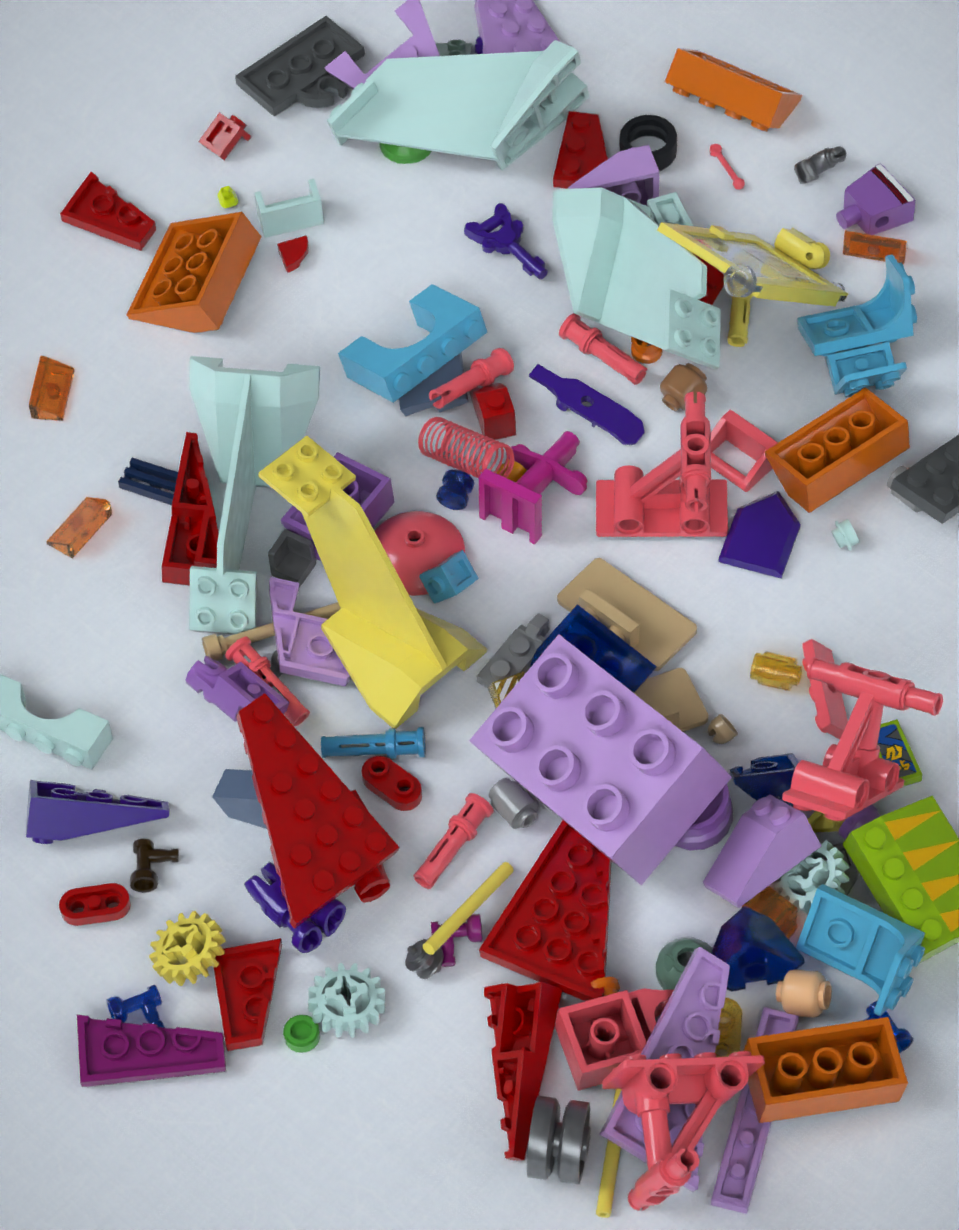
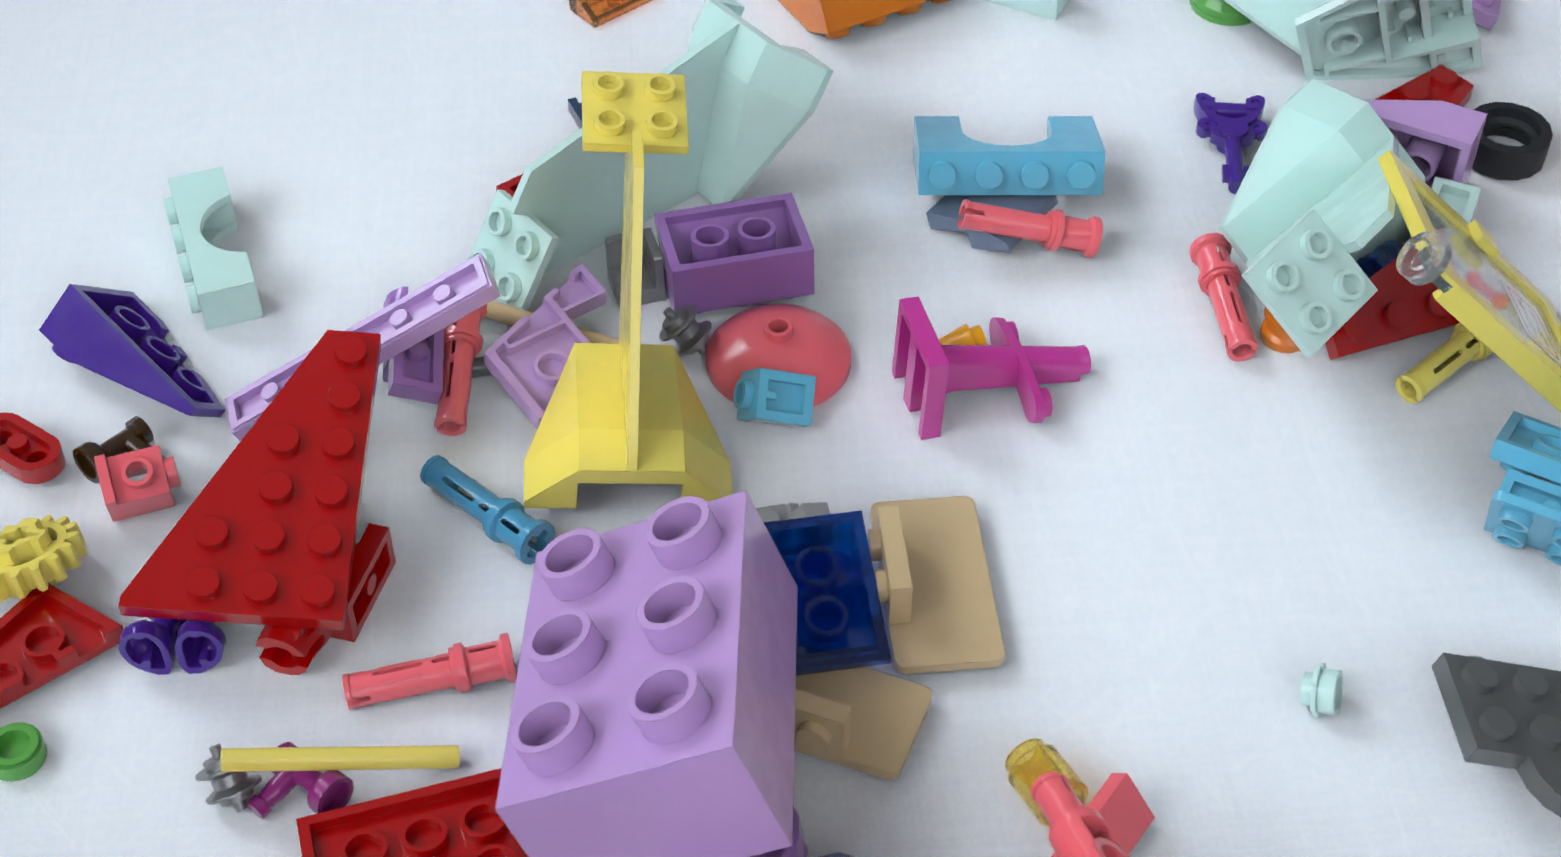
camera: 40 degrees right, 10 degrees down
(80, 526) = (487, 118): clear orange slope -> none
(181, 877) = (133, 498): none -> coral brick
(220, 719) = (400, 328): none -> lavender tile
(293, 252) = (990, 20): red tile -> none
(361, 991) = (92, 751): light aqua gear -> none
(389, 781) = (458, 553): red plate -> none
(447, 439) = (949, 276): coral piece -> none
(455, 489) = (881, 320): clear blue wheel -> none
(494, 410) = (1024, 277): red slope -> none
(602, 412) = (1152, 358): dark purple piece -> none
(660, 504) = (1130, 479): coral plate -> none
(681, 381) = (1280, 390): medium nougat head -> none
(722, 728) = (899, 801): tan hinge -> none
(747, 439) = (1297, 473): coral tile -> none
(761, 536) = (1209, 619): dark purple tile -> none
(838, 449) = (1414, 582): orange slope -> none

